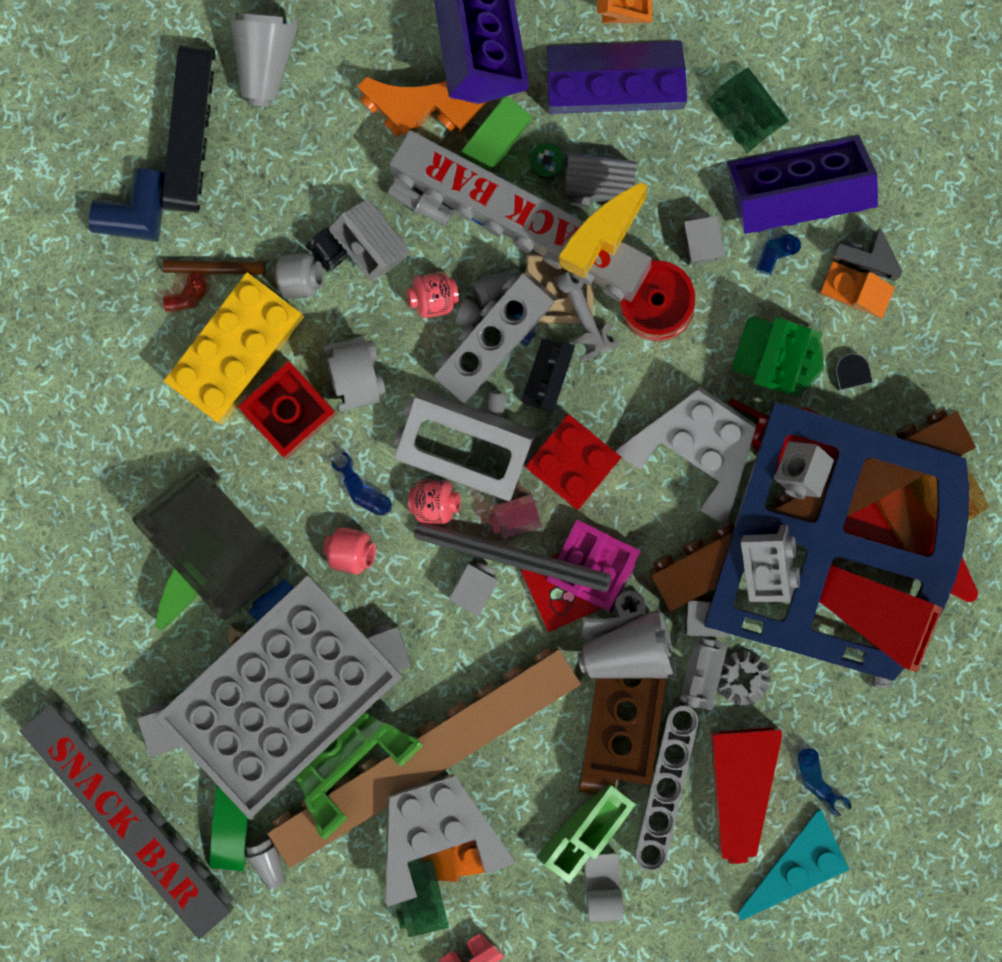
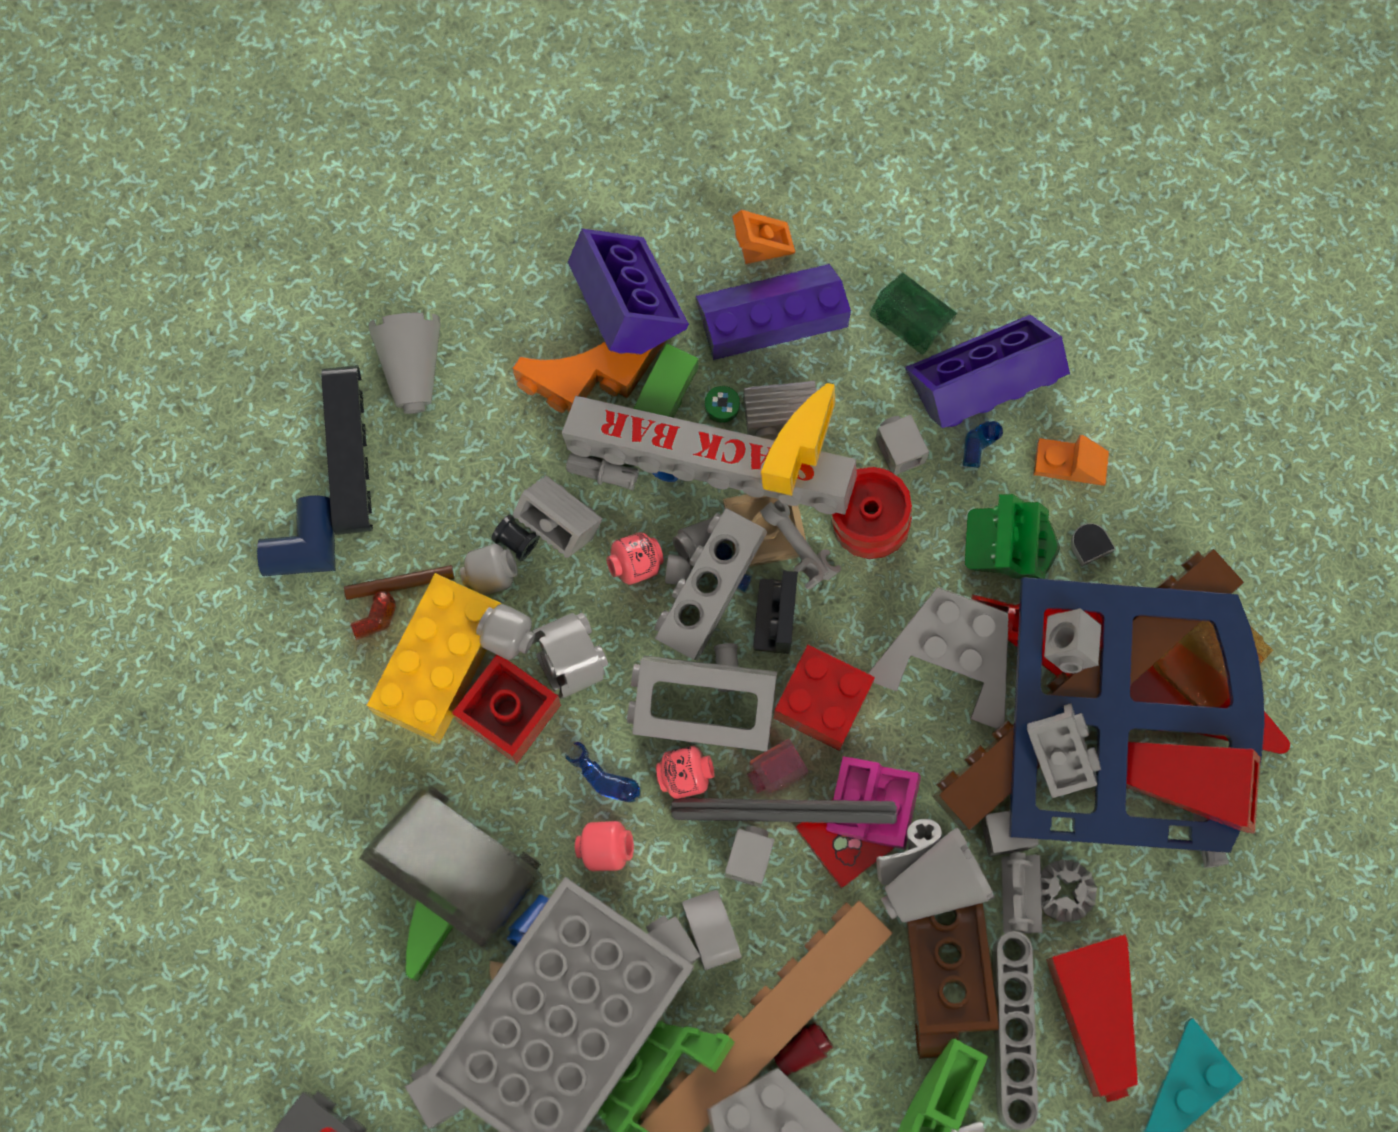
camera: 10 degrees left, 15 degrees down
(299, 344) = (505, 631): none -> light grey head
(426, 642) = (711, 930): none -> light grey panel
(484, 761) = (804, 1049): none -> dark red cone
(813, 781) = (1173, 987): arm -> none
(878, 260) = (1084, 421): dark grey slope -> none

